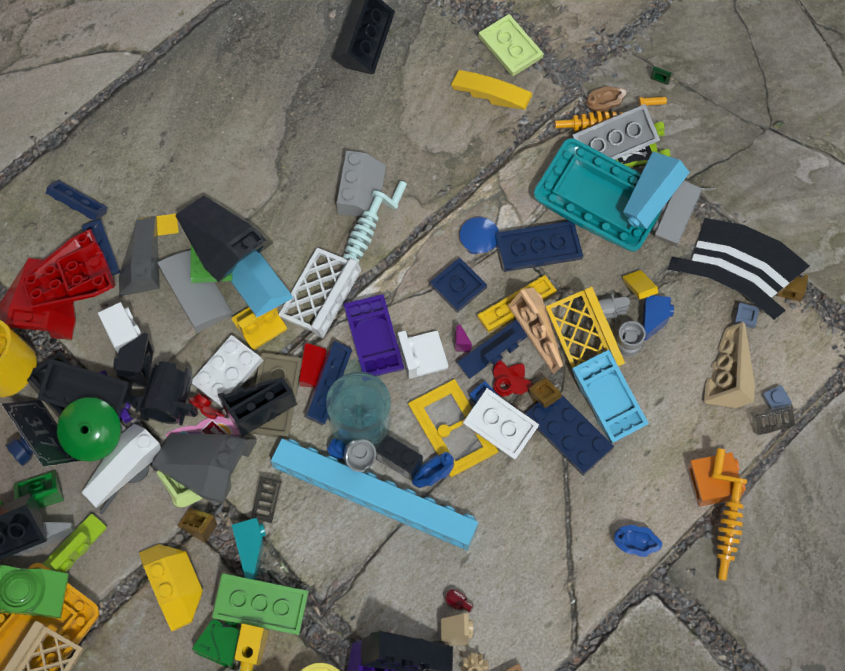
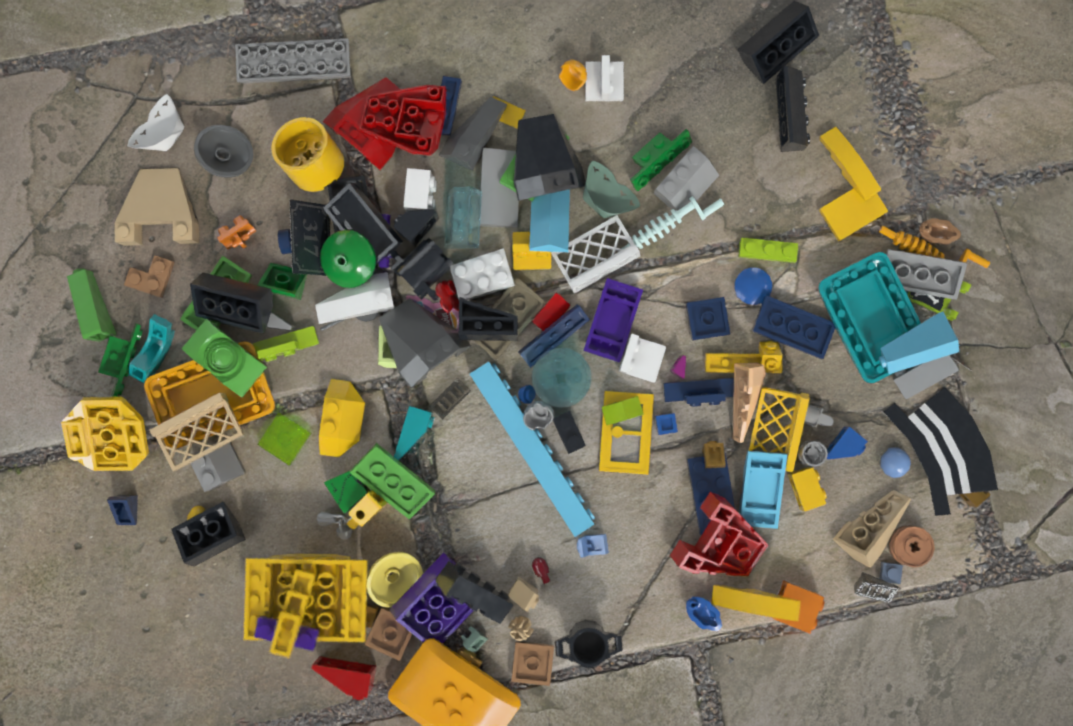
camera: 30 degrees right, 20 degrees up
(76, 200) = (452, 49): dark blue plate -> none
(126, 638) = (284, 438): none -> clear neon green plate
(175, 331) = (463, 218): none -> clear light blue slope
(198, 524) = (386, 385): pearl gold slope -> none
(201, 158) = (573, 74): none -> light orange hair
(231, 148) = (604, 80): none -> white bracket
(295, 240) = (605, 195): none -> sand green piece
(320, 180) = (656, 156): none -> green bracket
(412, 77) = (791, 110): none -> black slope
(434, 470) = (588, 459): blue arm -> none
(435, 408) = (622, 410): none -> lime slope
(471, 199) = (768, 250): none -> lime plate
(491, 545) = (592, 545): none -> medium blue bracket
(500, 424) = (663, 457): white plate -> none
(510, 45) = (894, 130): yellowish green plate -> none
(511, 377) = (698, 423): red plate -> none
(522, 128) = (851, 213): none -> yellow tile
(535, 279) = (770, 355): none -> yellow bracket
(548, 631) = (588, 644): none -> black container
(613, 463) = (726, 544): none -> red wedge
(640, 284) = (851, 413): yellow tile -> none
(649, 372) = (807, 488): none -> yellow brick
(661, 75) = (1001, 239): dark green slope -> none
(674, 494) = (756, 602): none -> yellow slope
(709, 303) = (895, 462): none -> medium blue hair
(732, 514) = (783, 650): light orange piece -> none
(747, 314) = (917, 492): sand blue plate -> none
(776, 363) = (904, 554): none -> nougat wheel

